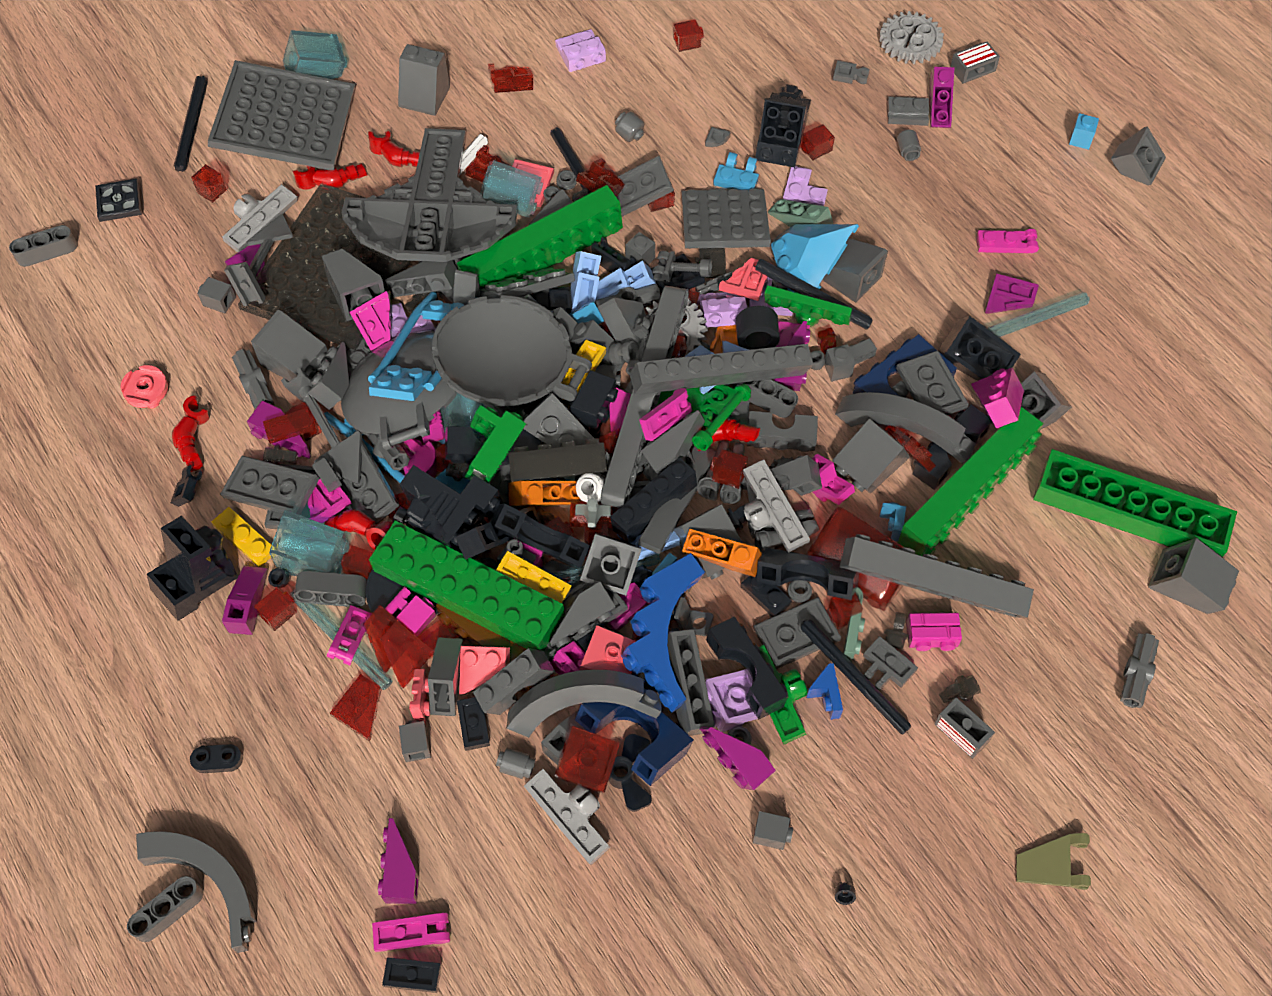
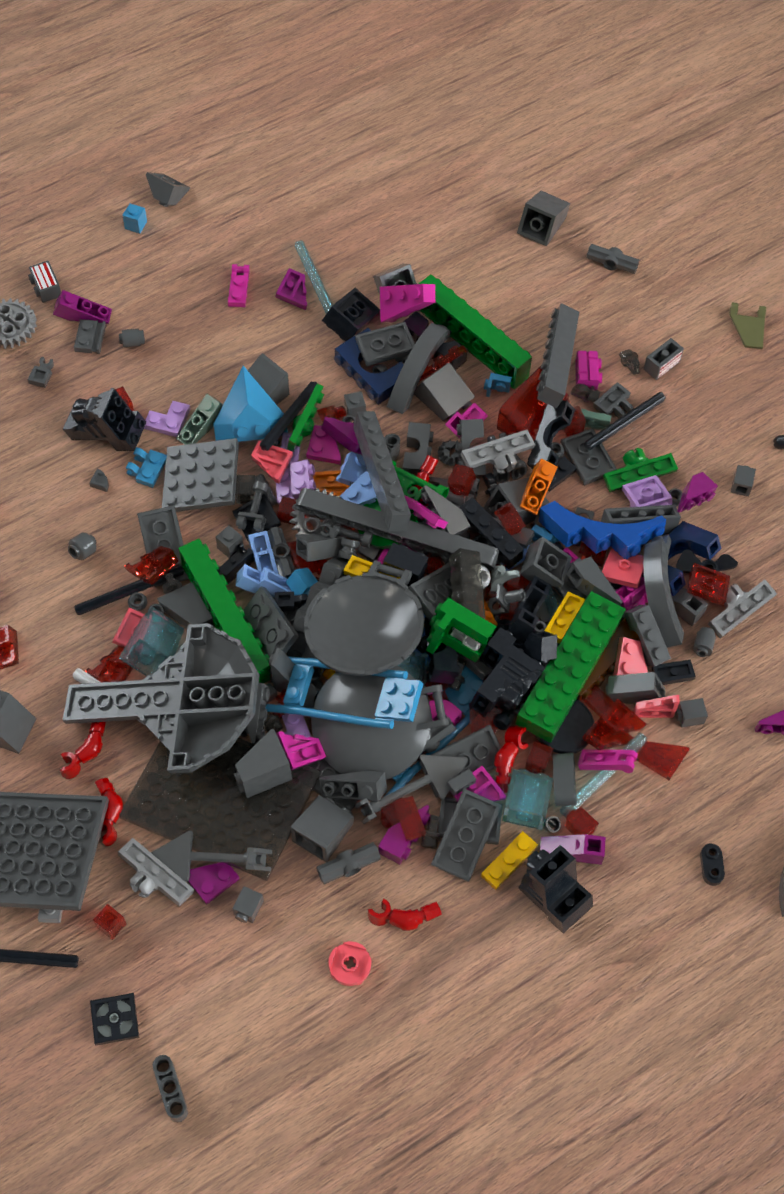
camera: 90 degrees left, 0 degrees up
(185, 488) = (465, 912): black plate -> none
(414, 615) = (586, 713): dark pink brick -> none
(557, 512) = (504, 599): none -> dark grey bracket
(667, 514) = (510, 519): none -> clear red brick
(731, 642) = (646, 471): black arch -> none
(757, 328) = (327, 454): black piece -> none
(827, 686) = (635, 437): blue slope -> none
(863, 350) = (339, 390): dark grey piece -> none
(1132, 503) = (487, 240): green brick -> none

